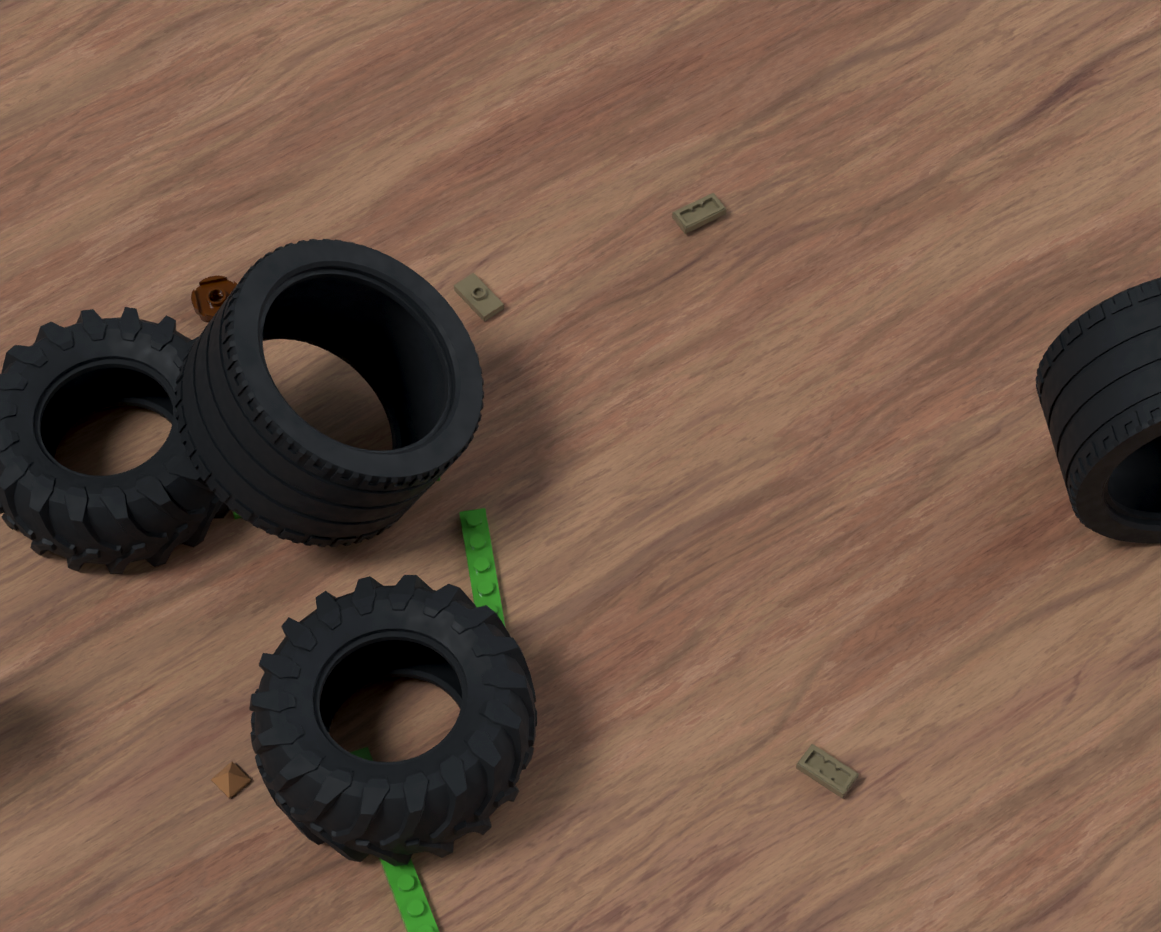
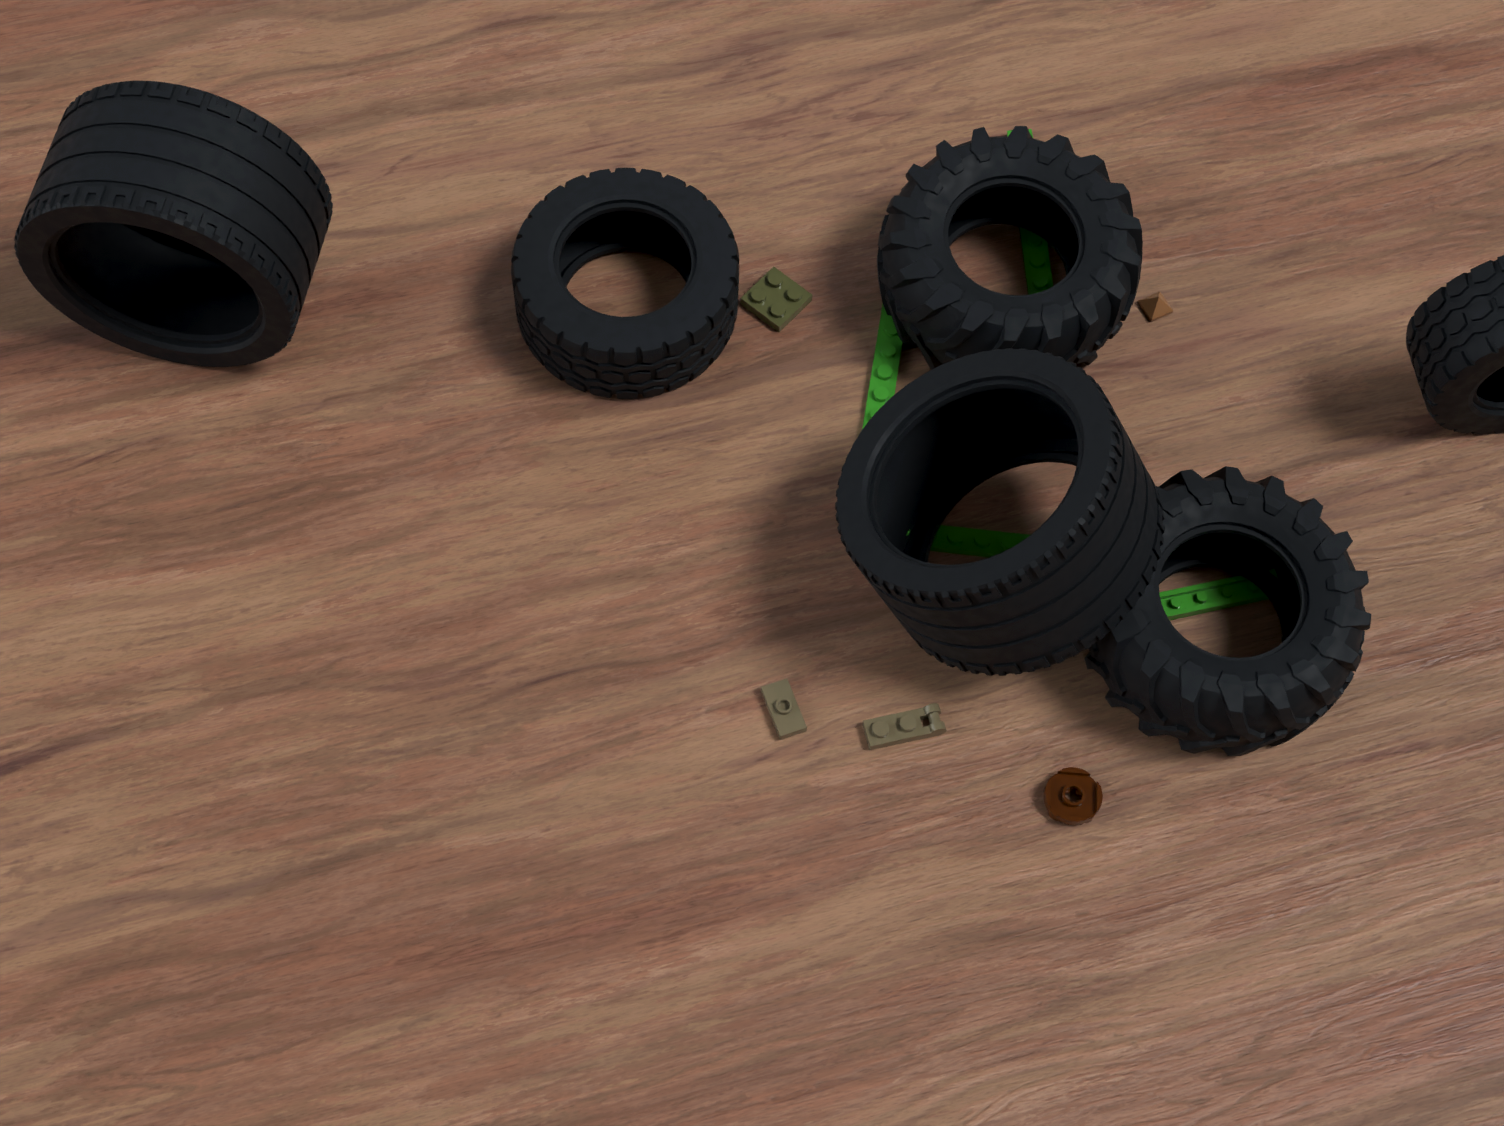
camera: 165 degrees left, 5 degrees up
(624, 659) = (776, 299): none -> olive plate
(699, 213) = (503, 730): dark tan plate -> none
(777, 512) = (614, 215): none -> black tyre
(827, 771) = (642, 154): dark tan plate -> none

